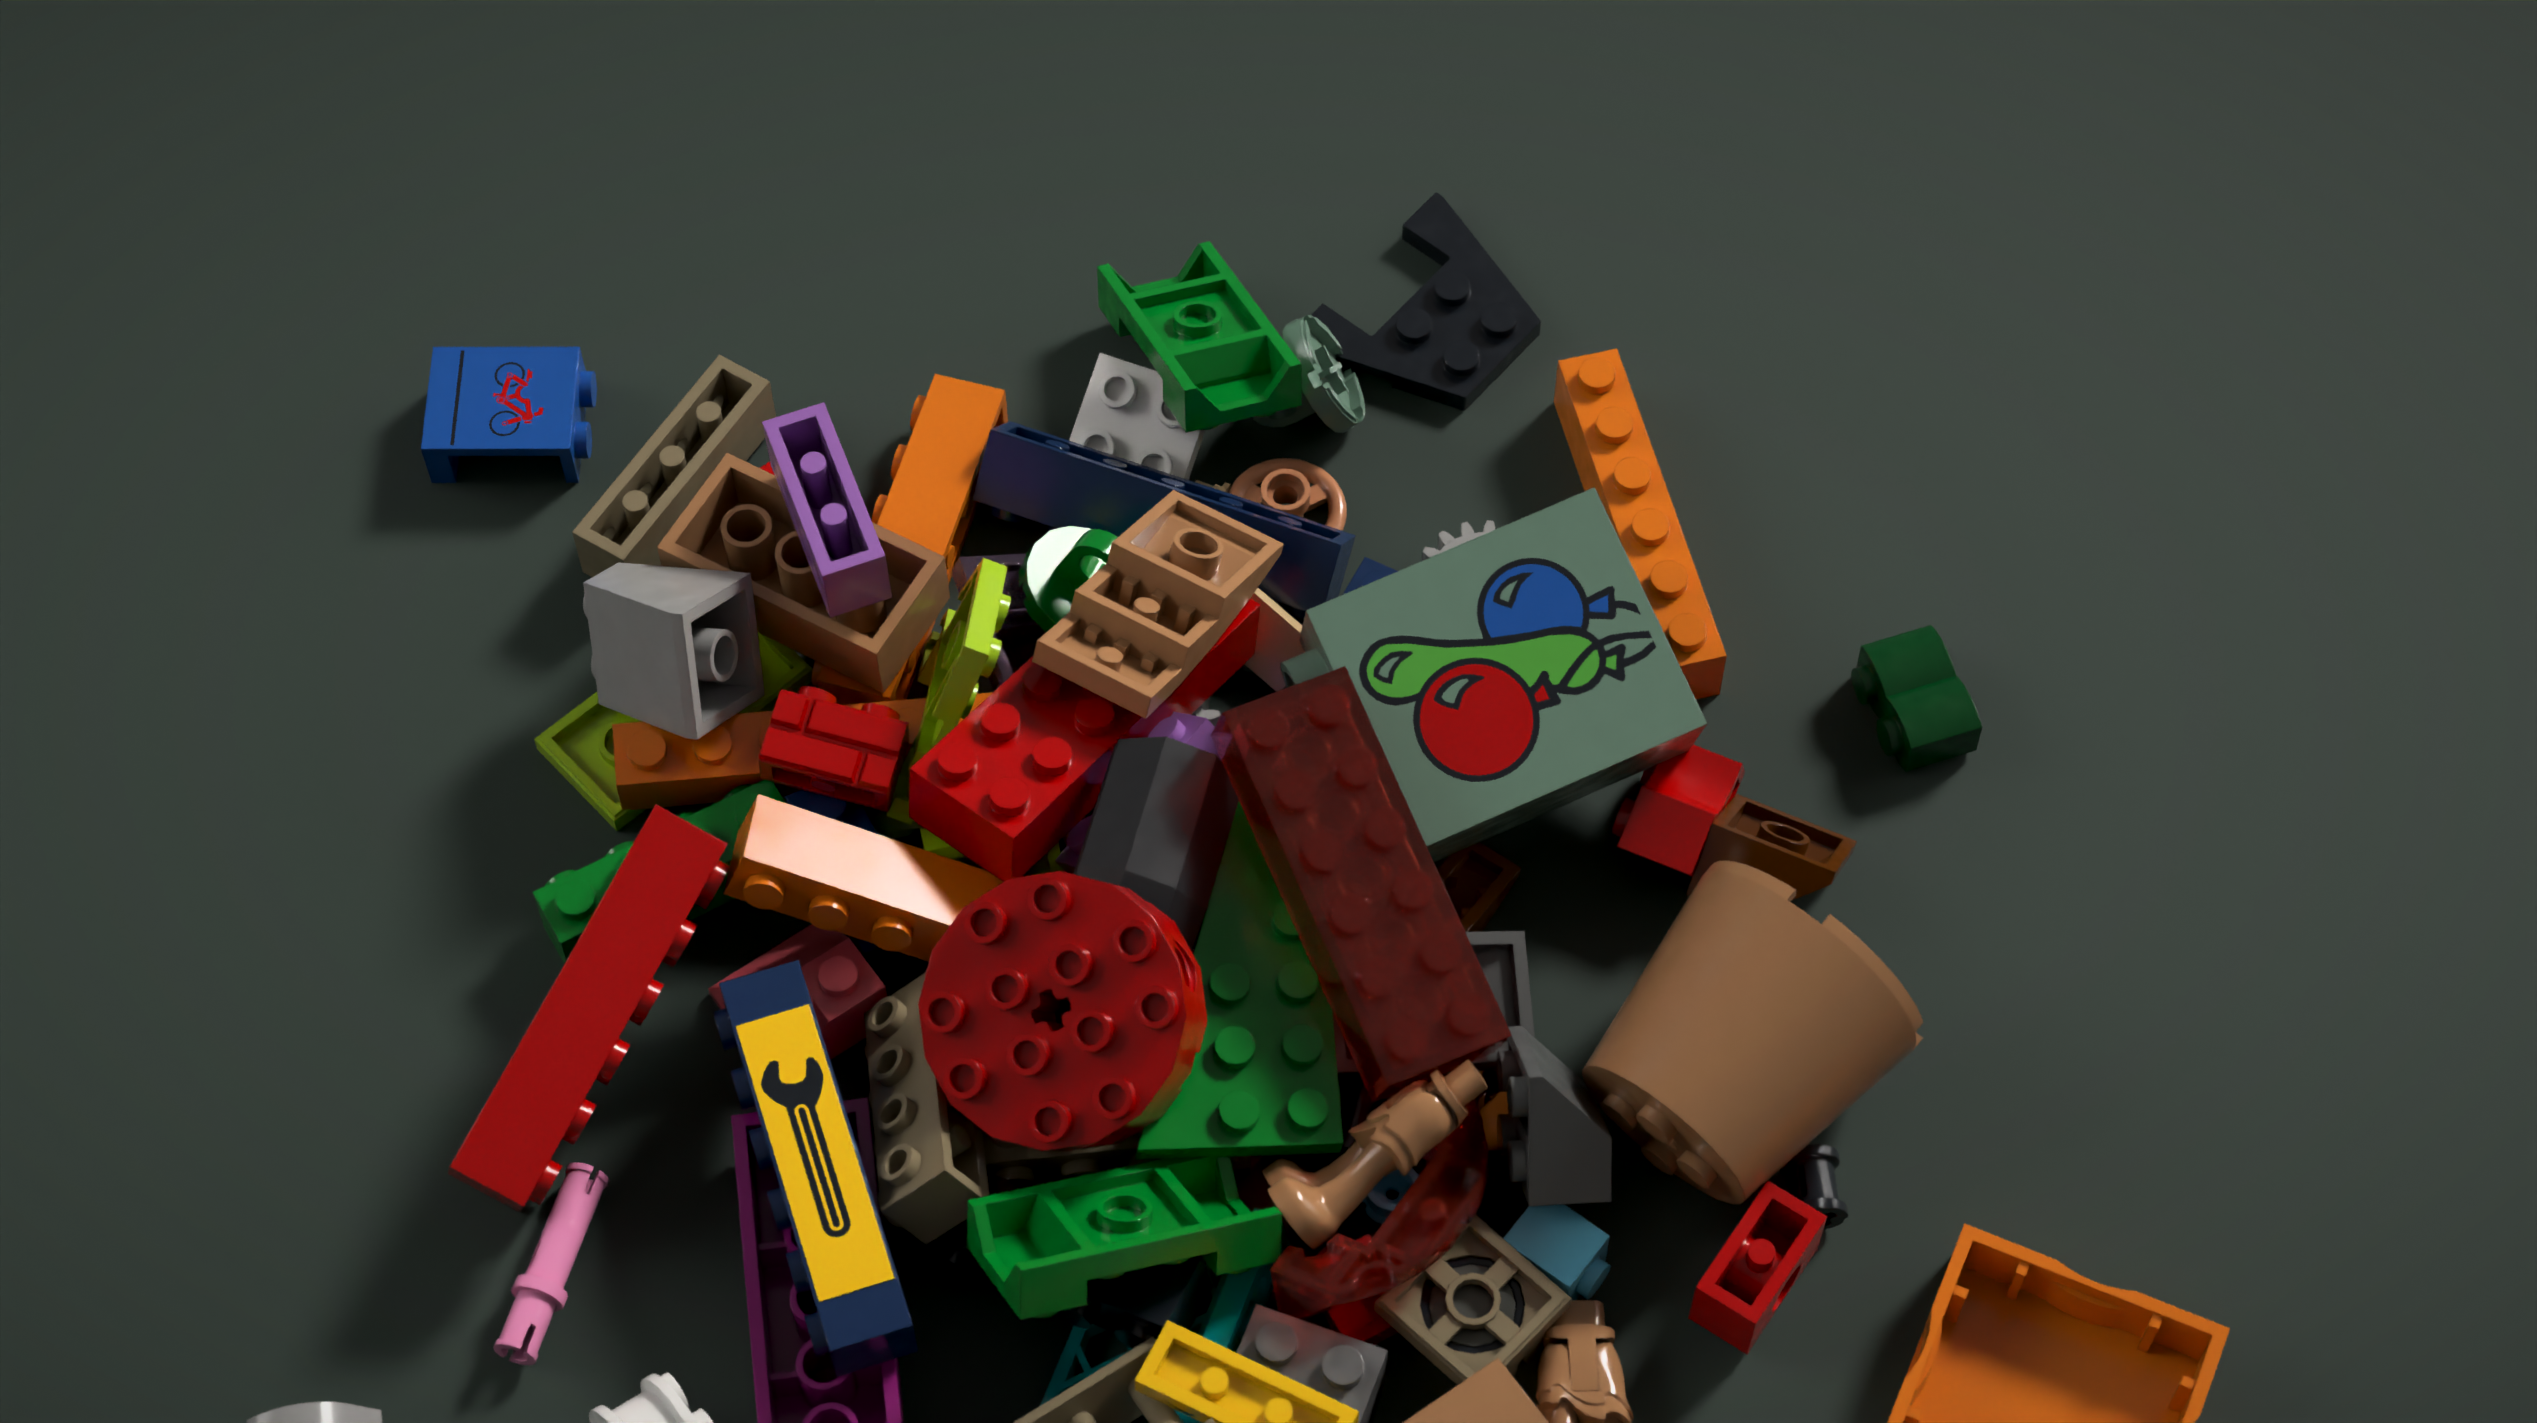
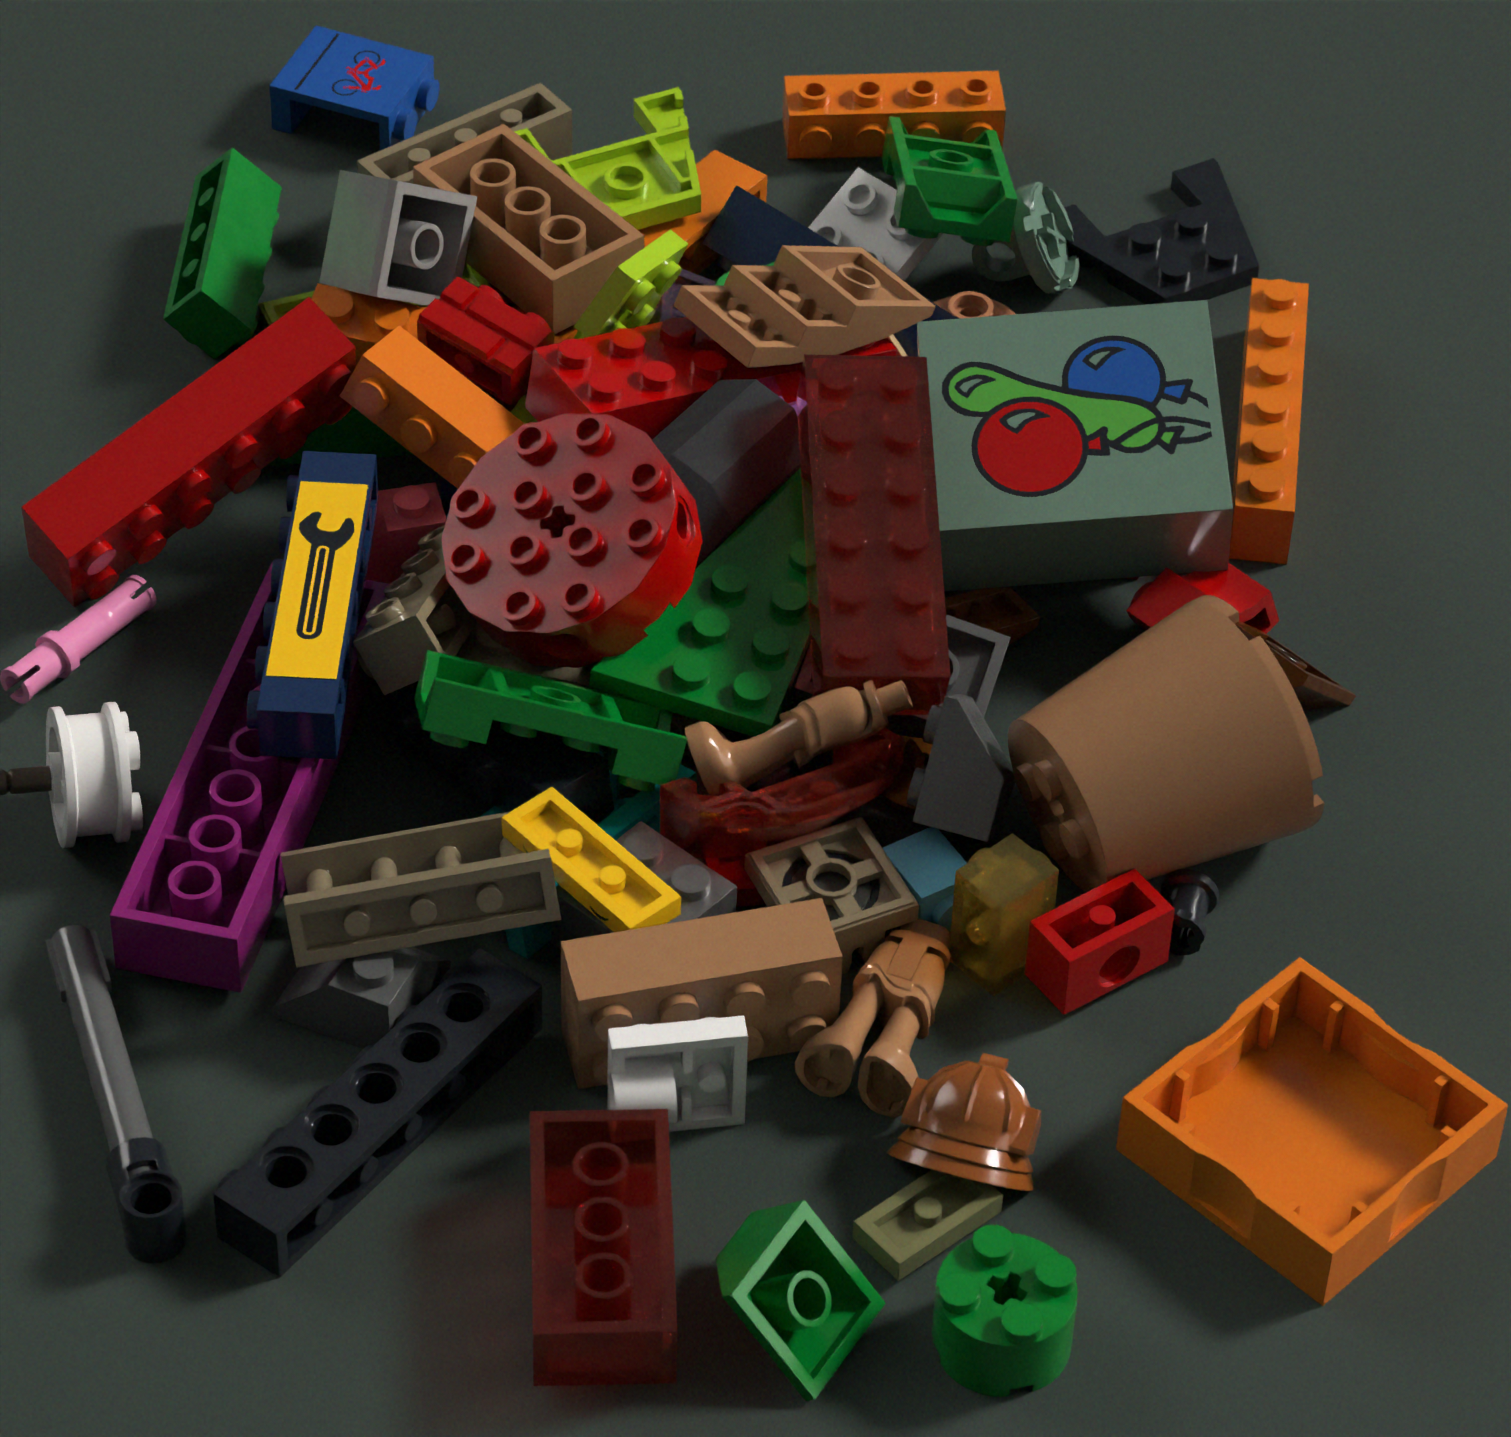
camera: 20 degrees right, 15 degrees down
(473, 695) = (223, 254): none -> green brick
(827, 510) = (557, 162): medium lavender brick -> none
(887, 436) = (643, 177): none -> lime wing
(1056, 256) = (851, 111): none -> orange brick
(1655, 1273) = (993, 910): none -> clear yellow brick
(1917, 698) = (1459, 606): dark green brick -> none

